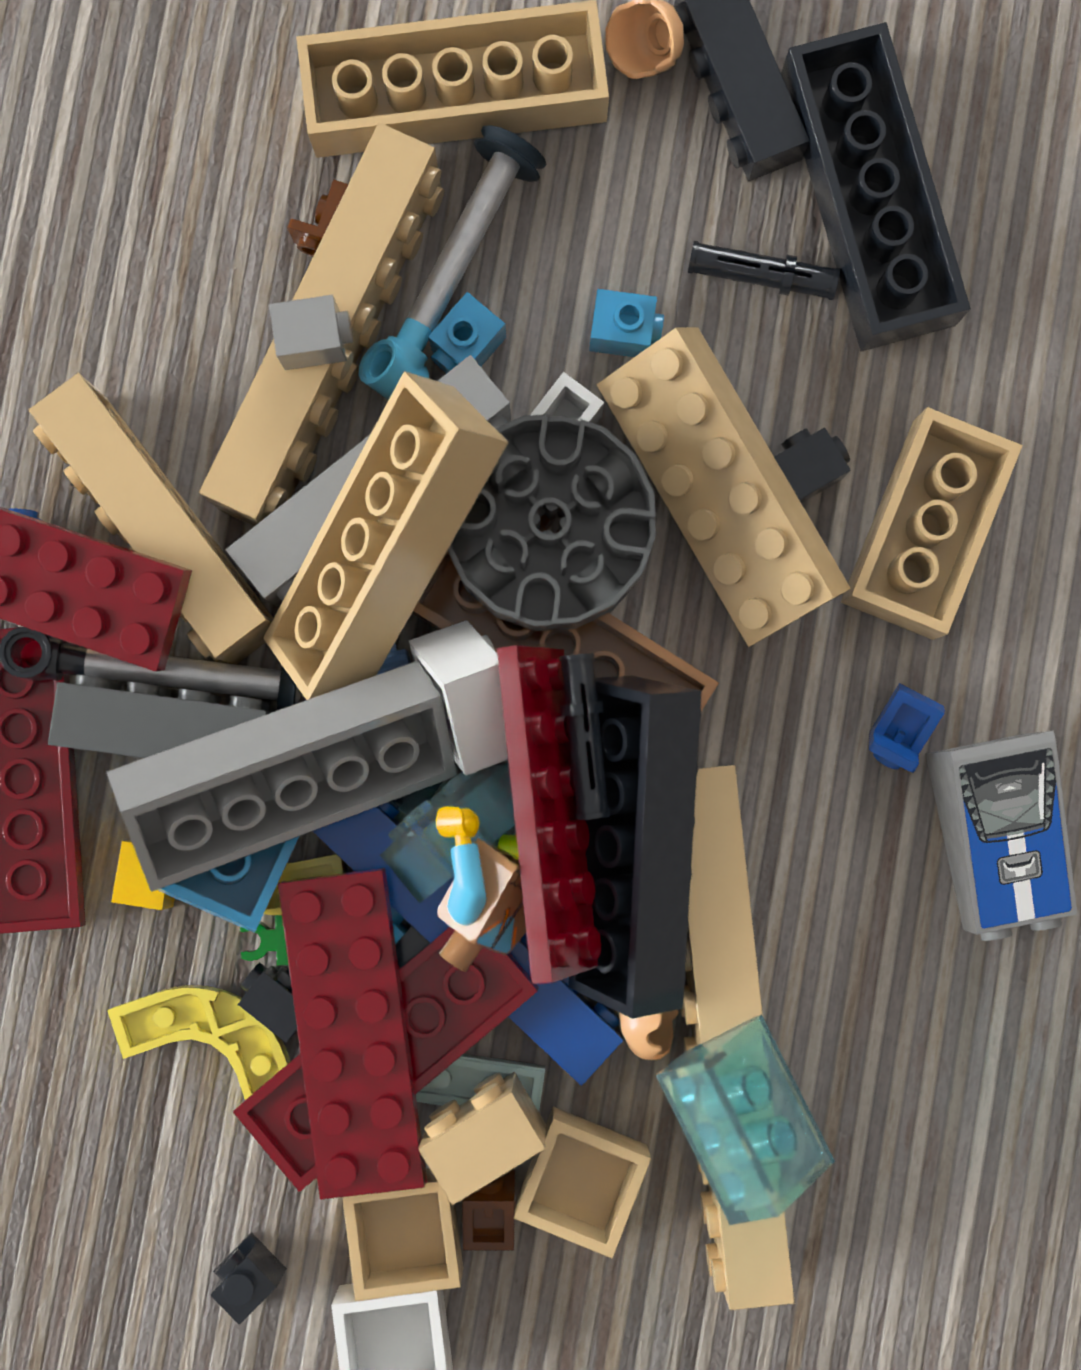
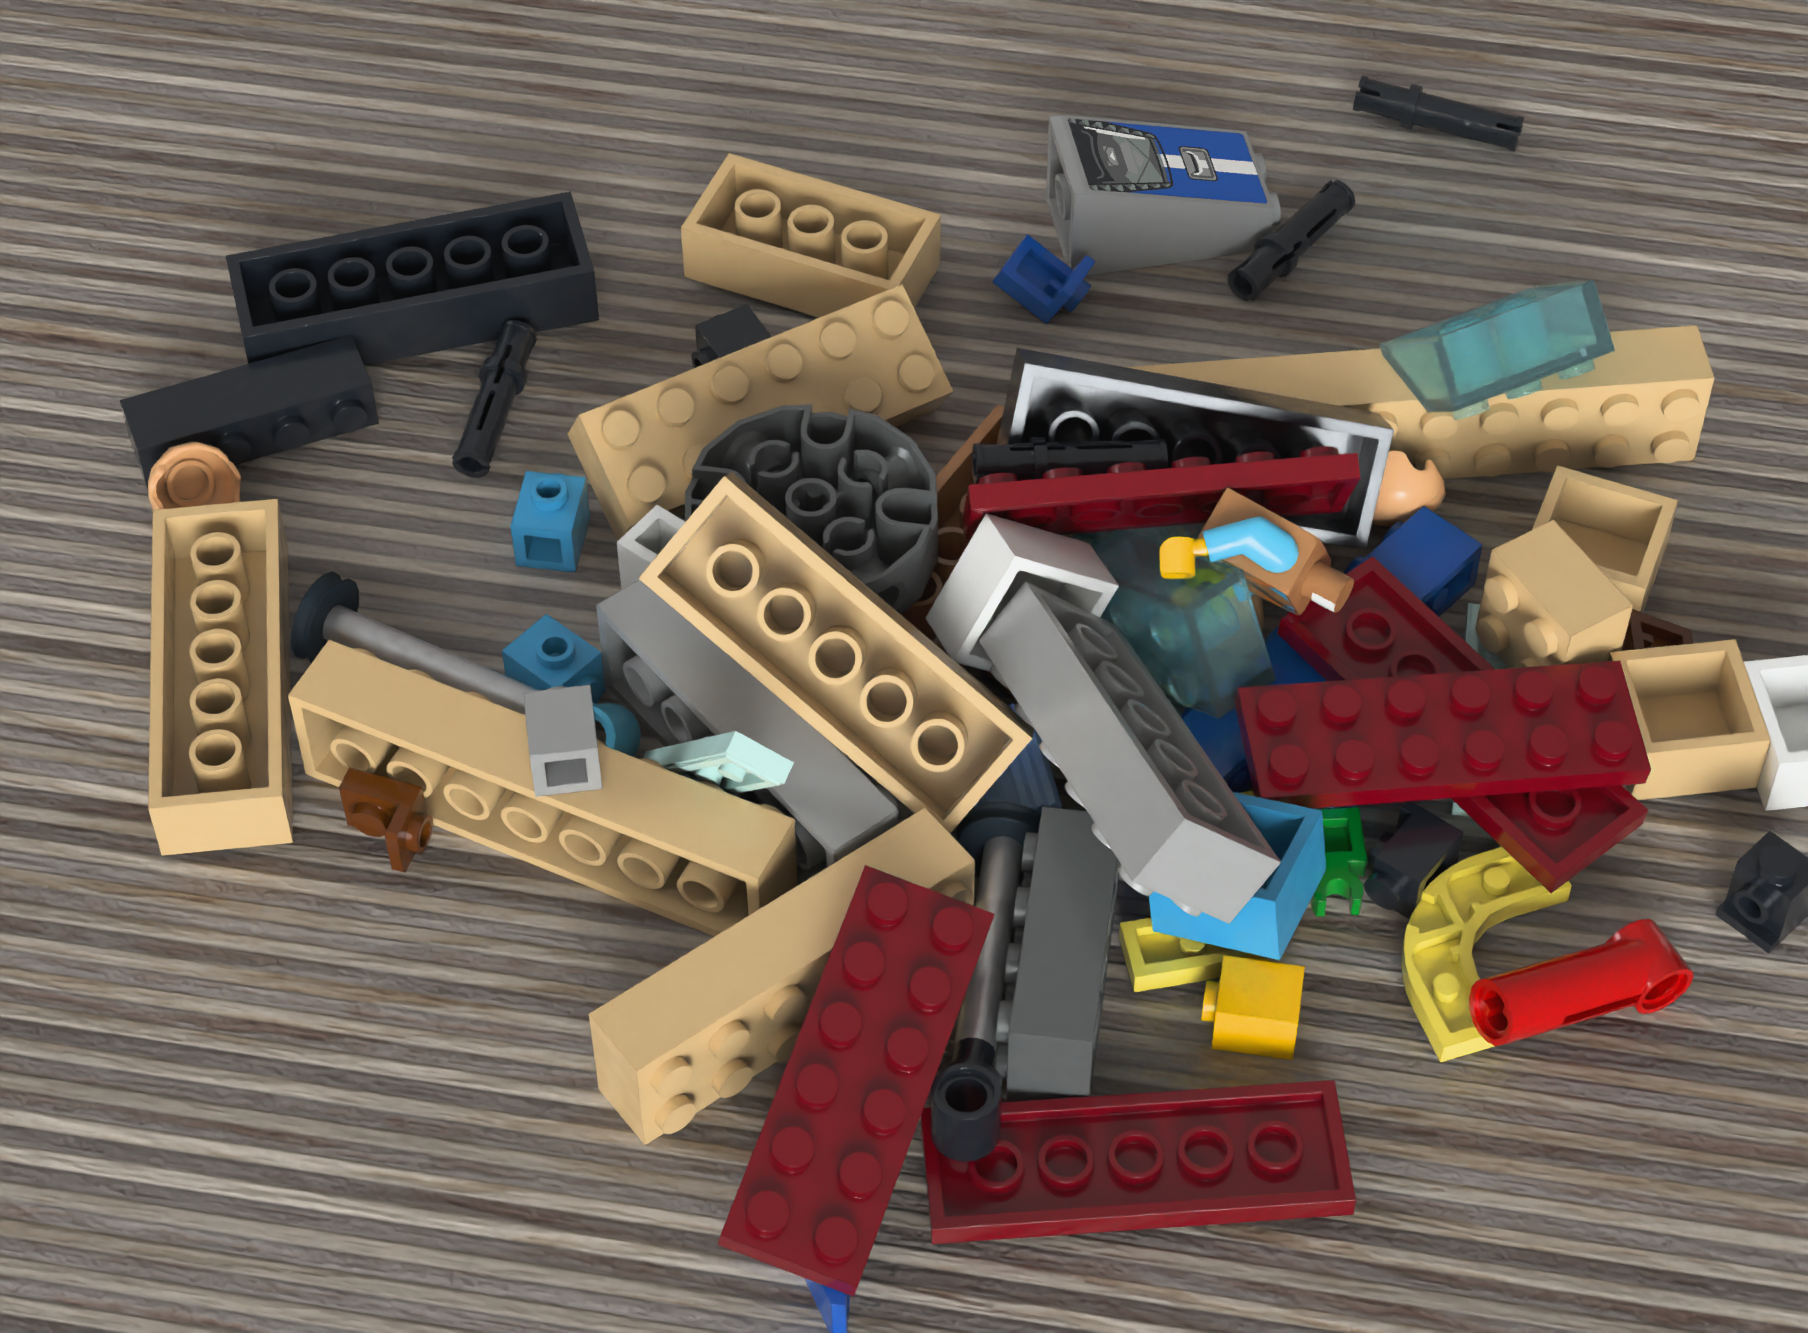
camera: 90 degrees left, 35 degrees down
(174, 1158) = (1628, 970): none -> red piece
(299, 457) = (725, 760): none -> light aqua tile
(945, 936) = (1279, 252): none -> black pin

